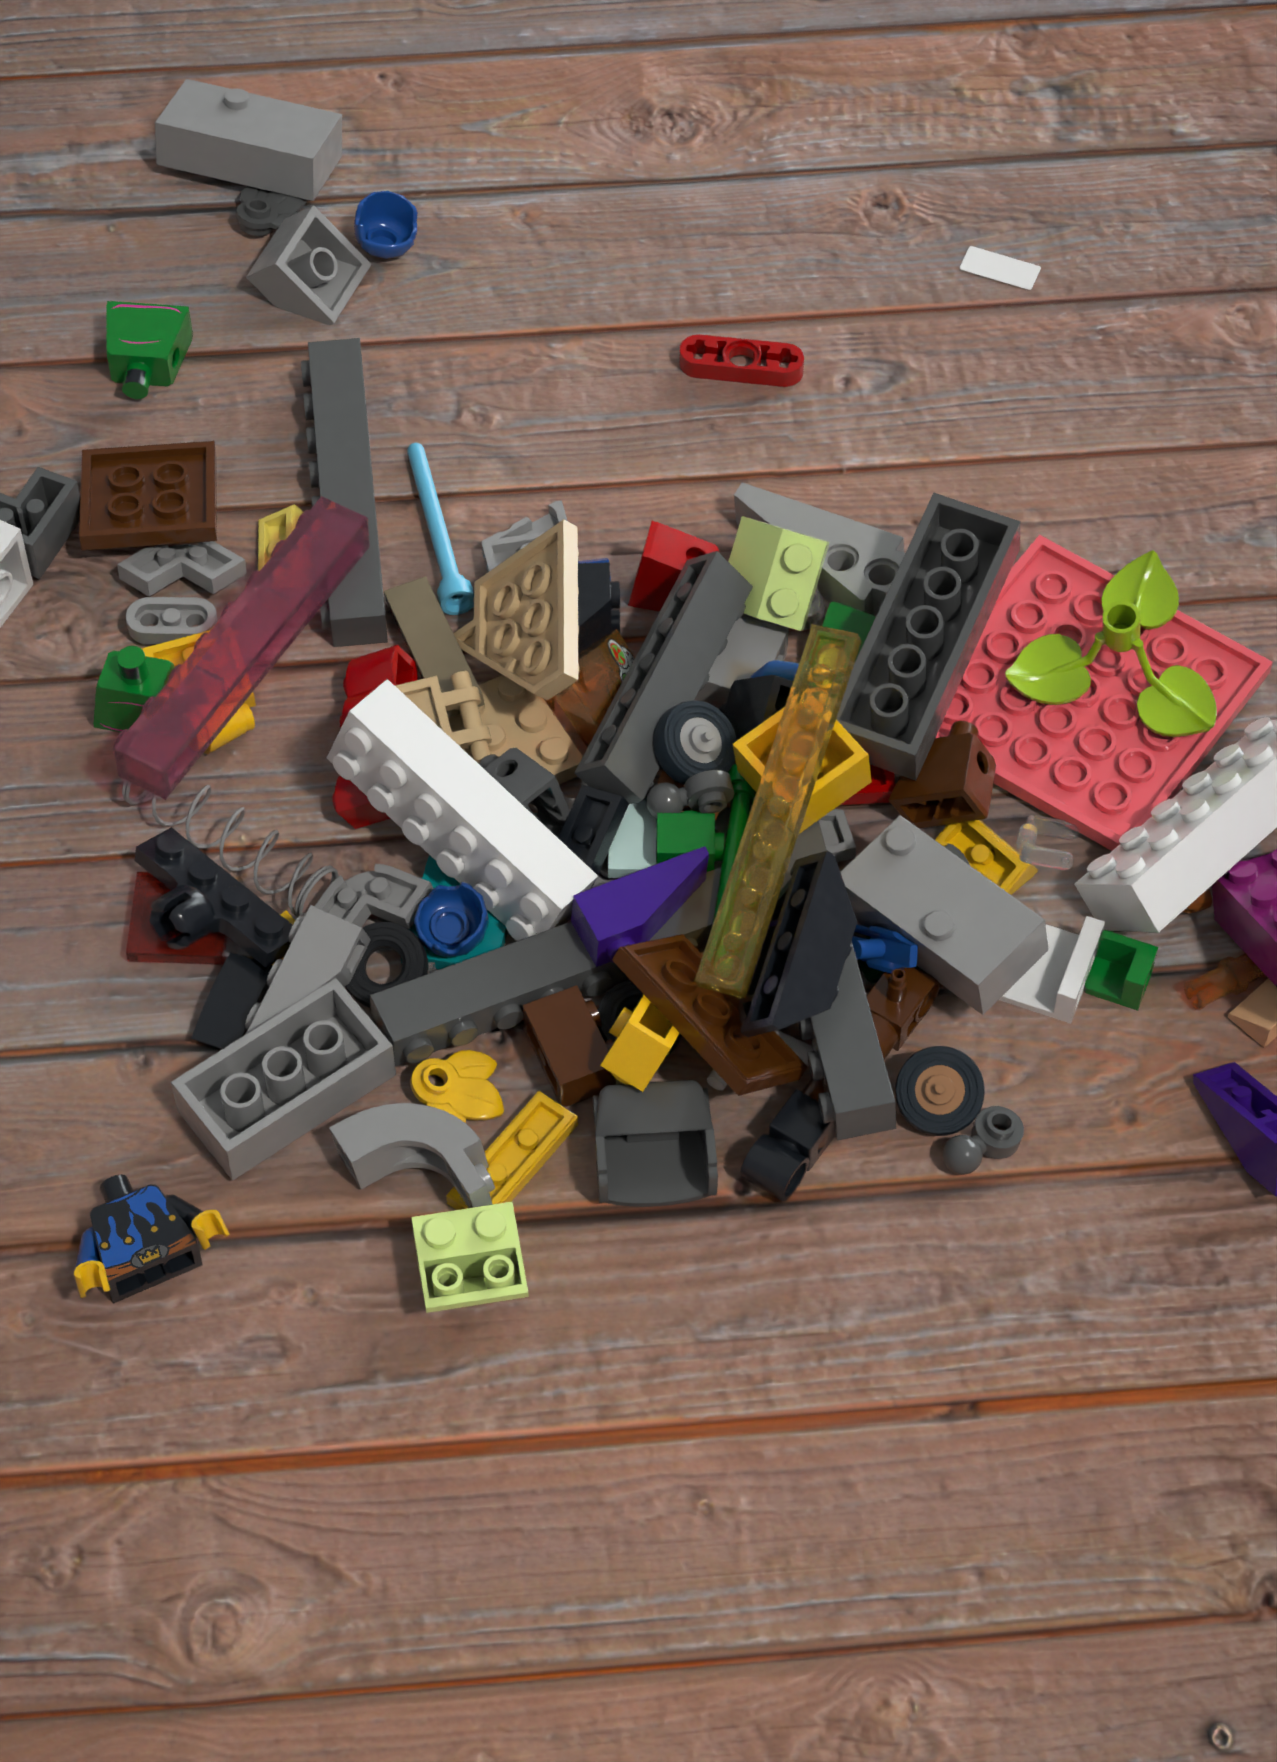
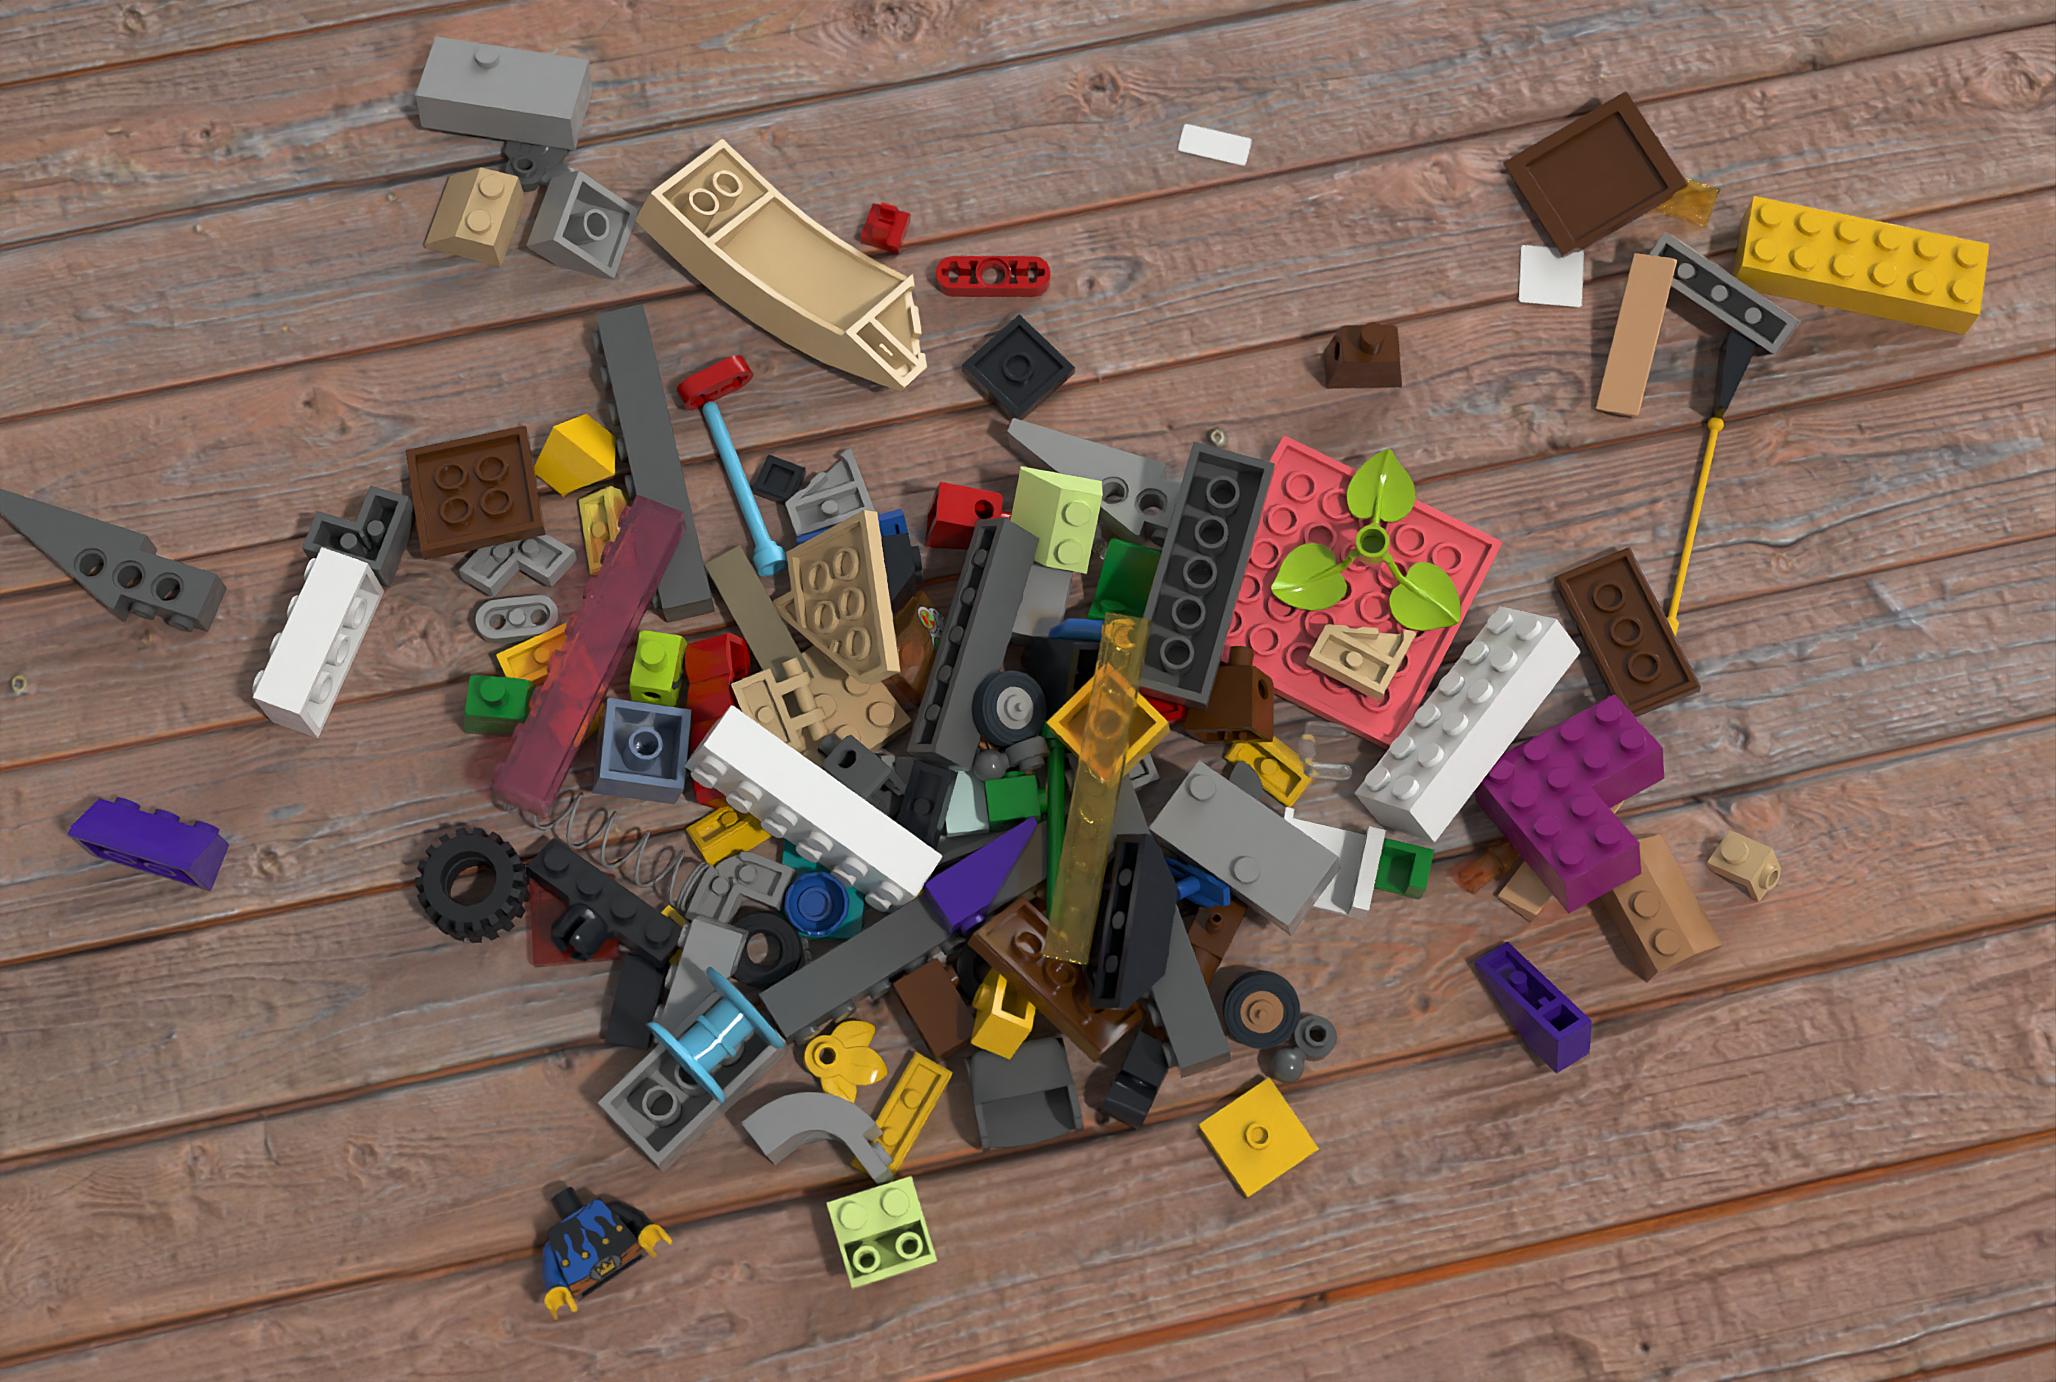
camera: 10 degrees left, 15 degrees up
(67, 833) = (455, 857): none -> black tyre
(146, 344) = (444, 329): green torso -> none
(201, 249) = (477, 215): none -> tan slope
(259, 474) = (576, 455): none -> yellow slope
(282, 752) = (641, 751): none -> sand blue brick
(314, 1009) = (716, 1034): none -> medium azure piece
(315, 668) = (658, 668): none -> lime torso
(371, 845) = (726, 834): none -> yellow slope
(385, 224) = (644, 168): blue hair -> none
(424, 423) = (714, 382): none -> red beam
(477, 523) = (779, 480): none -> black tile
(513, 325) = (786, 269): none -> tan slope
(632, 304) = (885, 227): none -> red tile
(756, 444) = (1018, 368): none -> black plate
(919, 1227) = (1258, 1138): none -> yellow plate
(1097, 749) = (1360, 656): none -> tan wing
(1139, 468) = (1363, 357): none -> reddish brown torso

